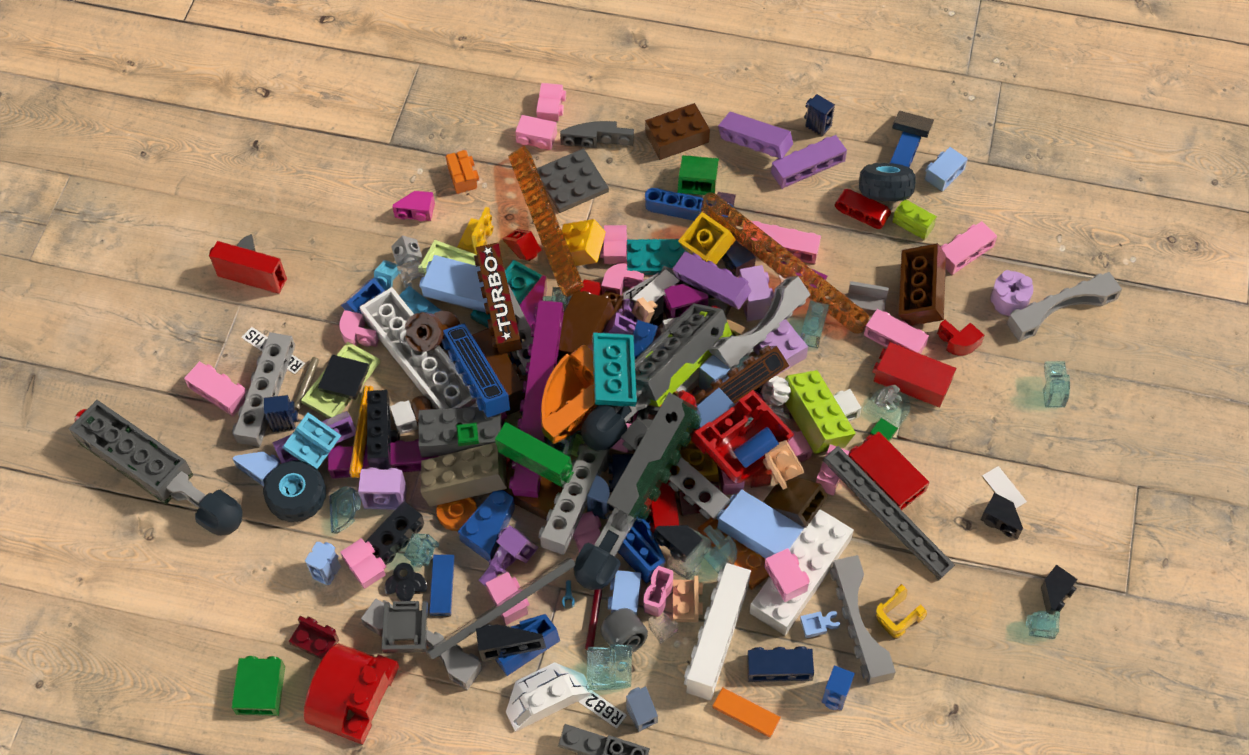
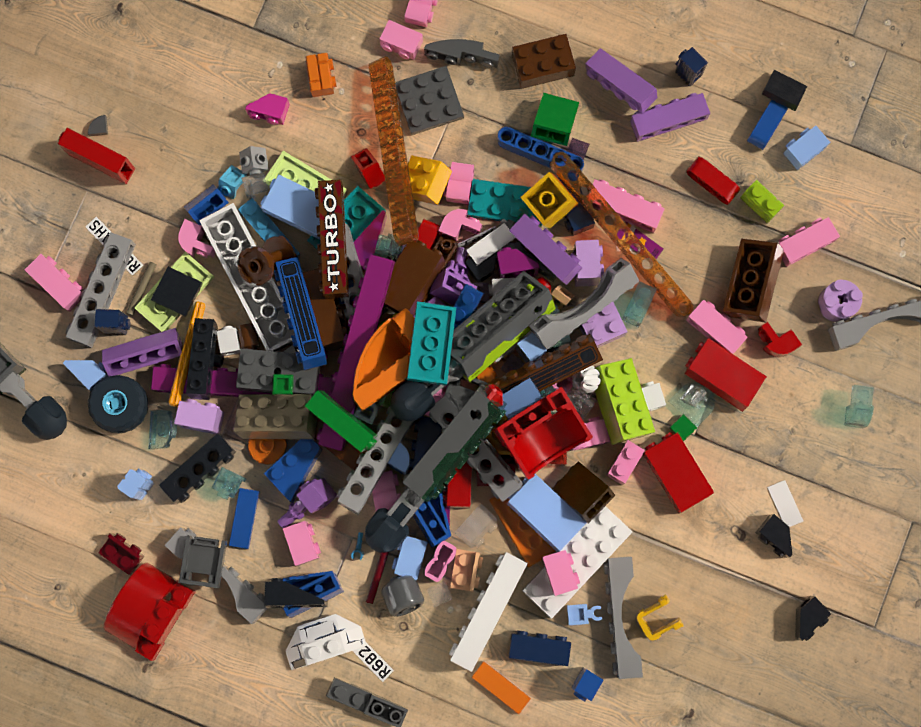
camera: 10 degrees right, 20 degrees up
(258, 686) = (66, 592): green brick -> none
(311, 441) = (137, 361): medium azure slope -> none
(363, 563) = (171, 494): bright pink brick -> none
(405, 586) = (210, 514): black plate -> none
(477, 232) = (324, 150): yellow bracket -> none
(500, 608) = (292, 560): dark grey tile -> none
(609, 667) = (383, 631): clear light blue slope -> none
(641, 708) = (406, 673): sand blue slope -> none
(644, 310) = (475, 269): light nougat tile -> none
(679, 539) = (468, 520): black slope -> none
(723, 552) = (509, 530): clear light blue brick -> none
(756, 447) = (554, 443): blue brick -> none
(783, 463) = (577, 458): light nougat bracket -> none
(868, 296) = (696, 283): light grey panel -> none
(887, 182) = (742, 159): black wheel -> none
(888, 512) = (669, 517): dark grey tile -> none
(1043, 624) = (789, 649): clear light blue brick -> none

